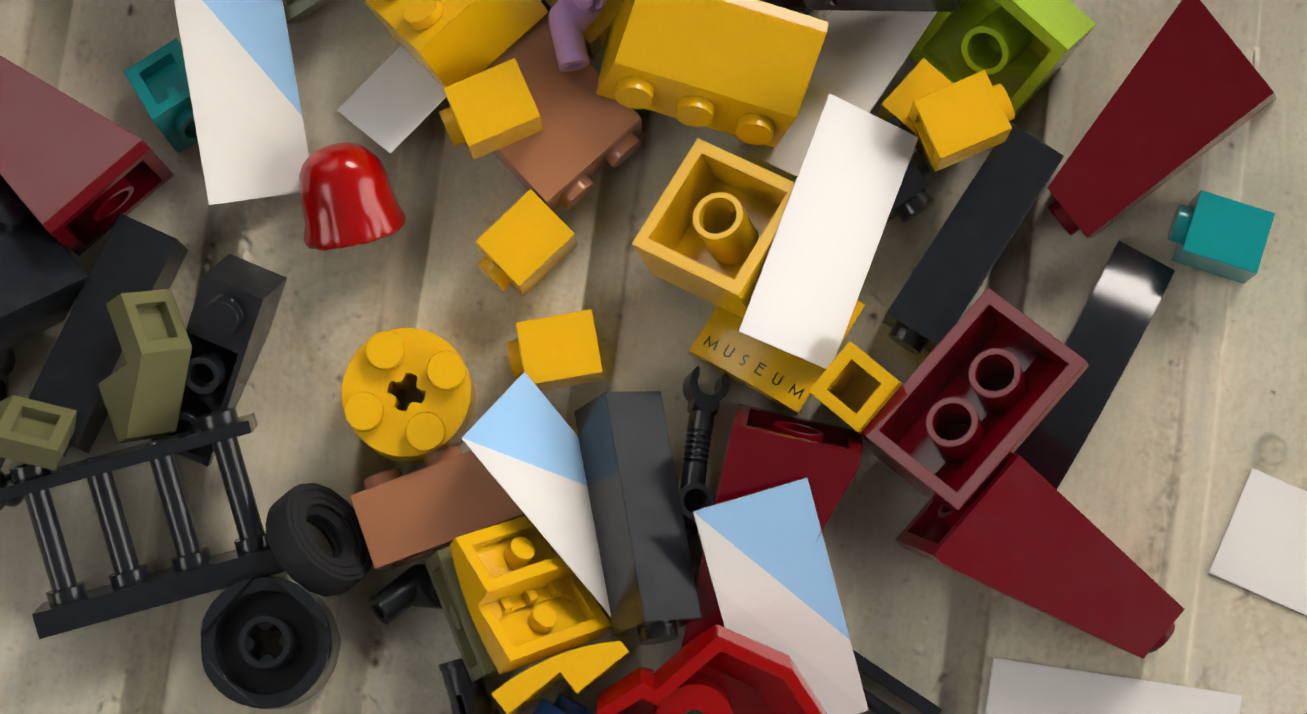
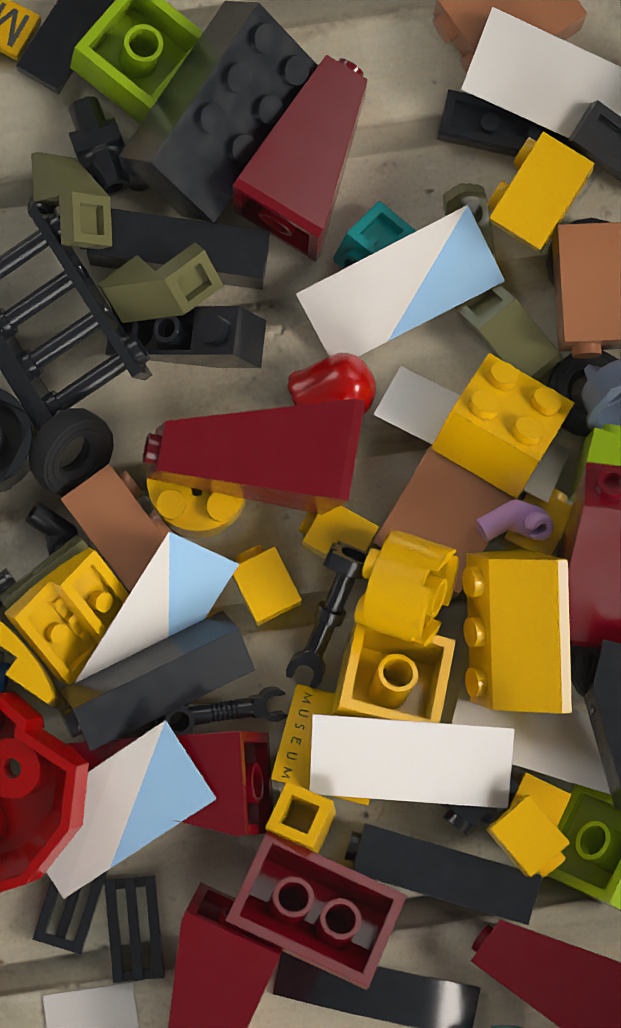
camera: 60 degrees right, 0 degrees up
(406, 284) = (271, 456): none -> dark red slope
(490, 110) = (426, 478): yellow brick -> none
(569, 236) = (330, 613): none -> black piece
(617, 169) = (407, 587): none -> yellow brick
(983, 645) = (137, 972): none -> black tile

